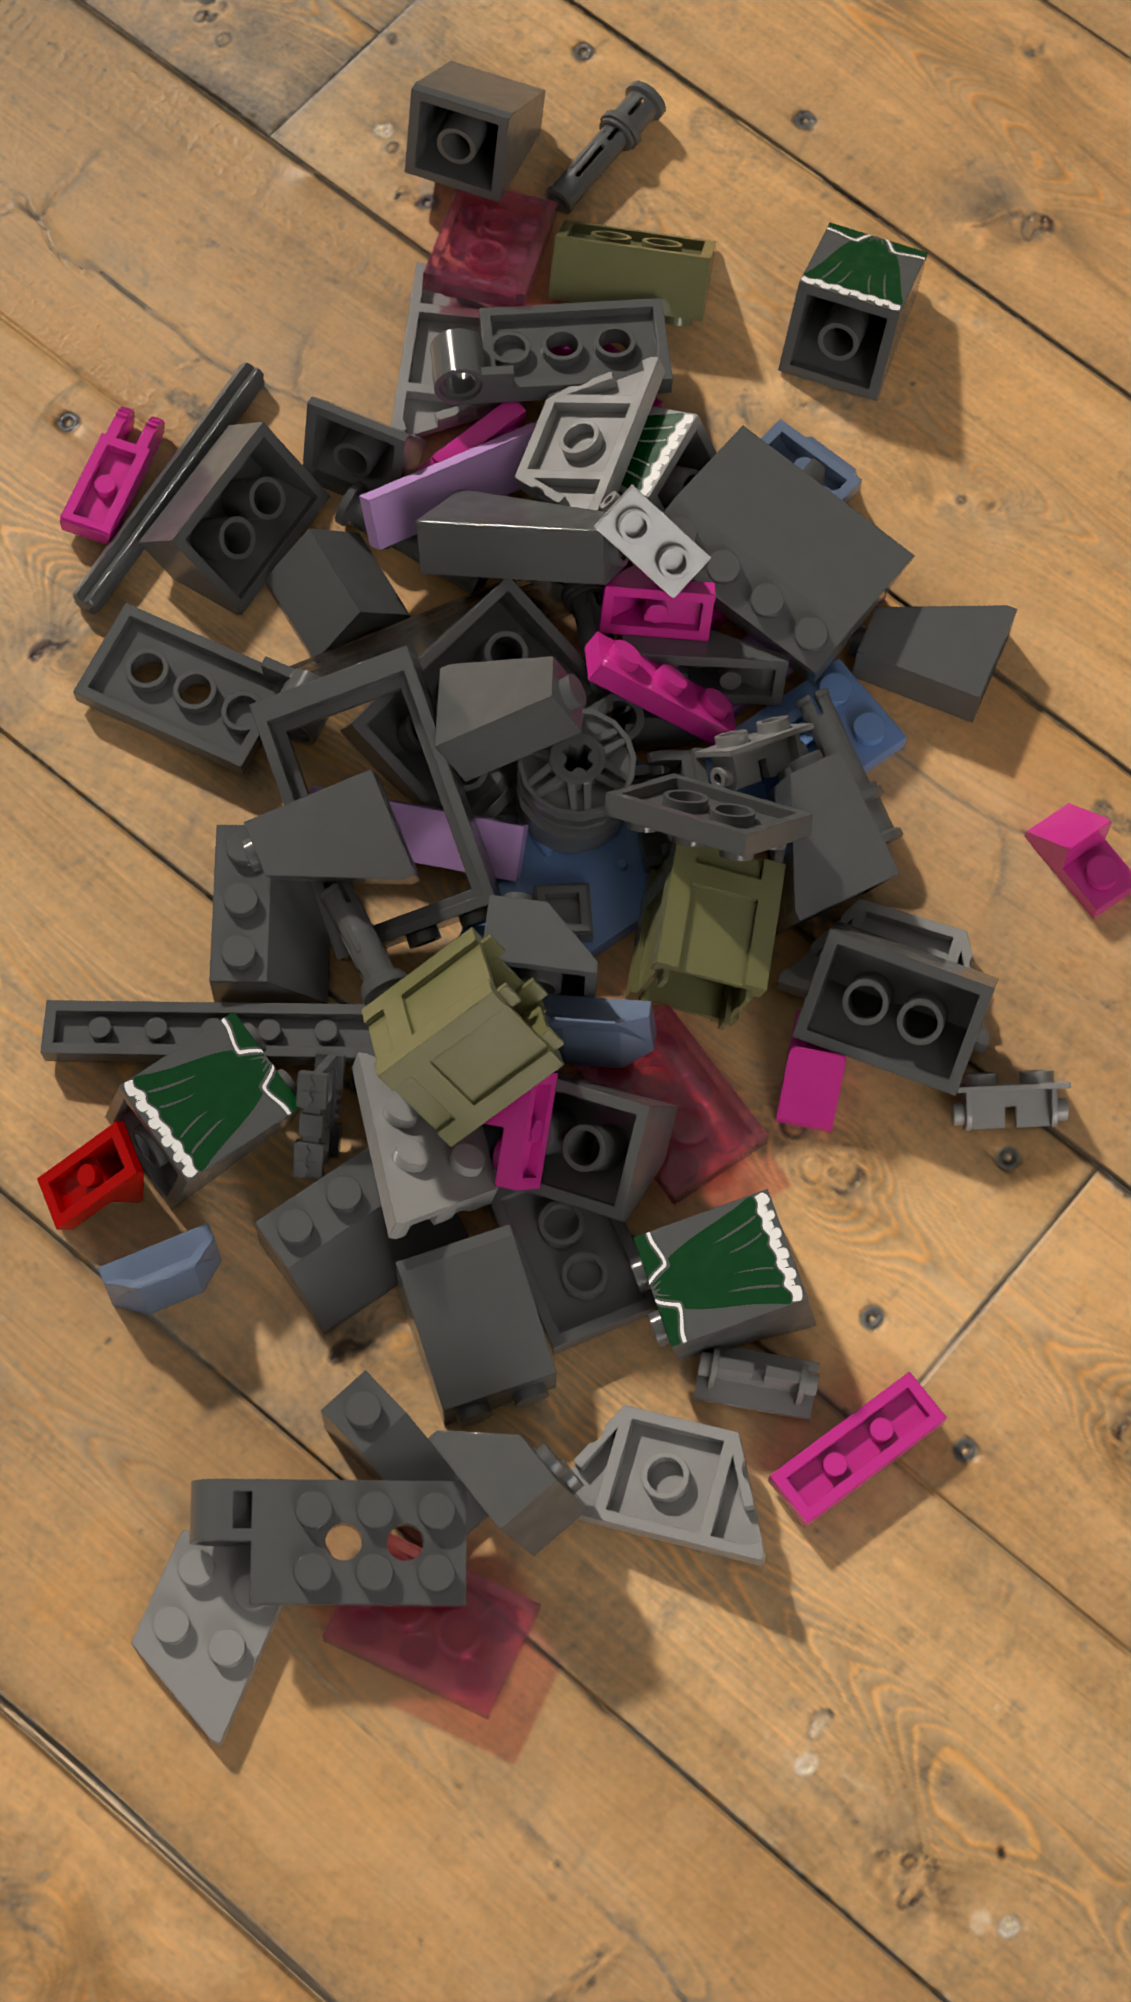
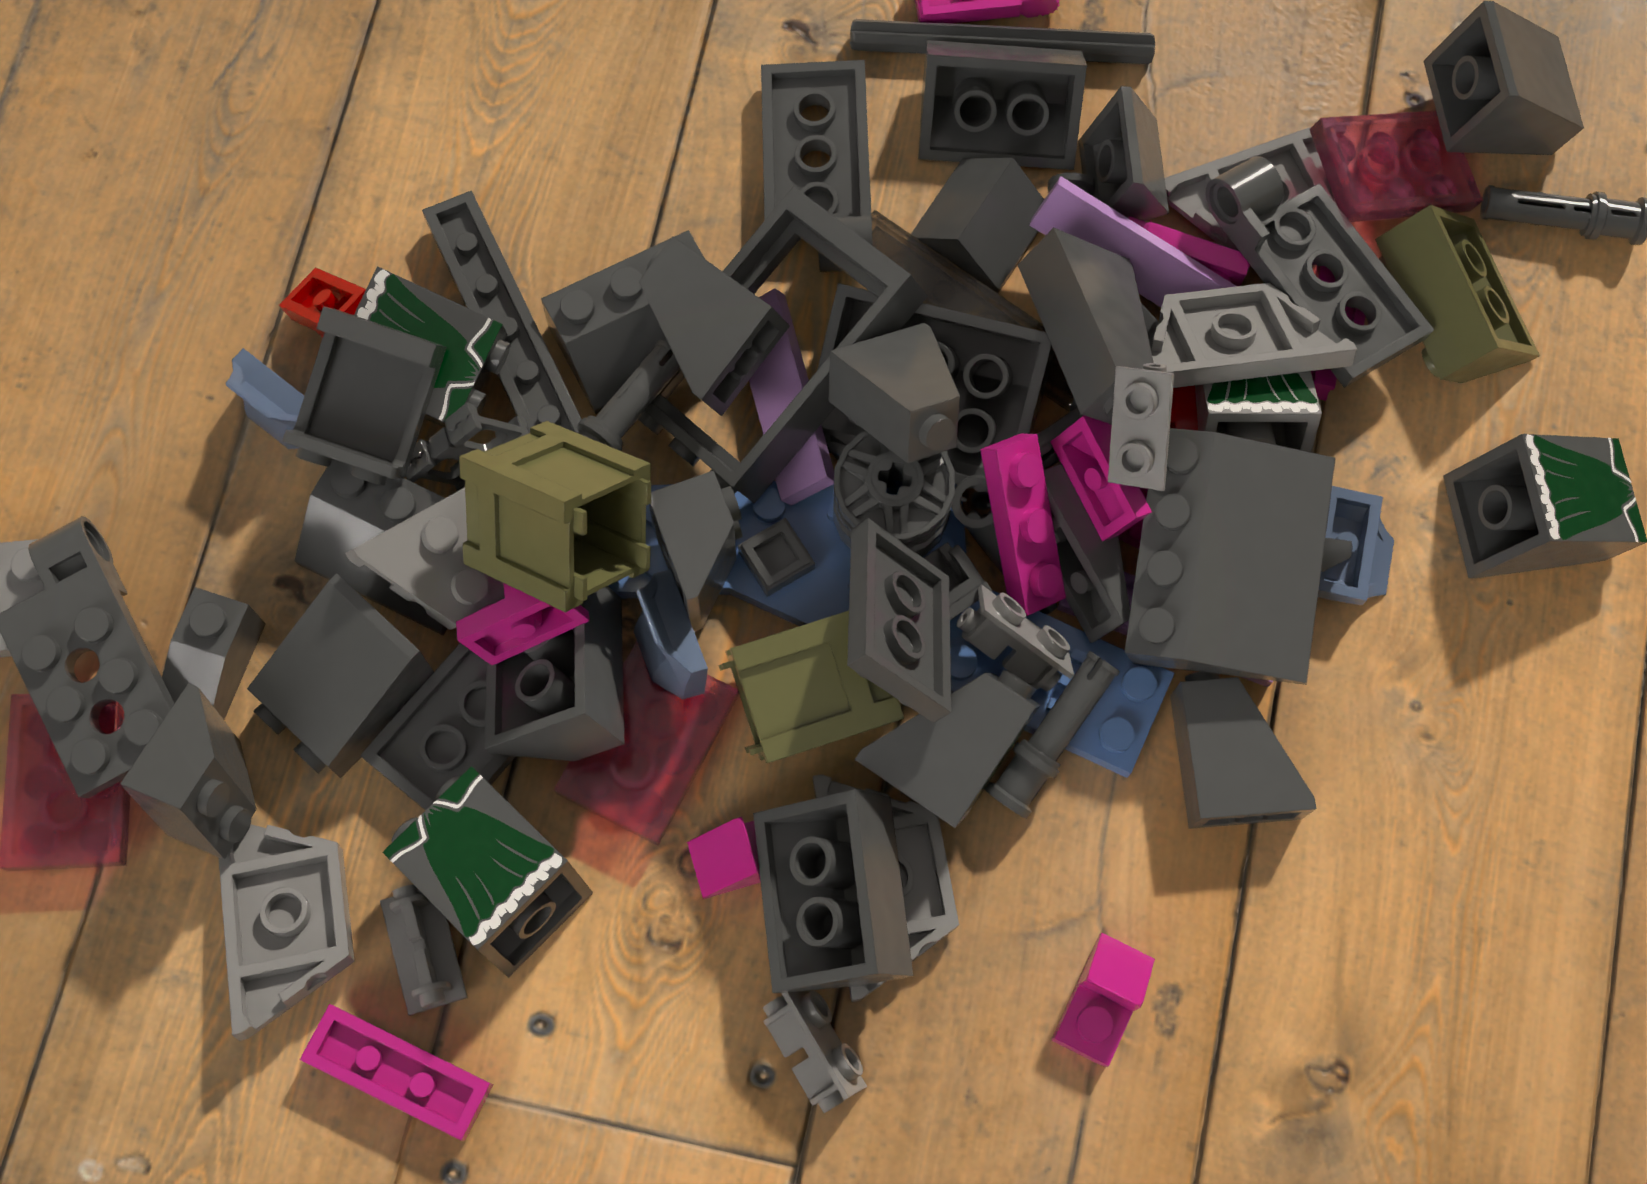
camera: 60 degrees right, 5 degrees up
(238, 1159) = (365, 397): none -> dark grey panel

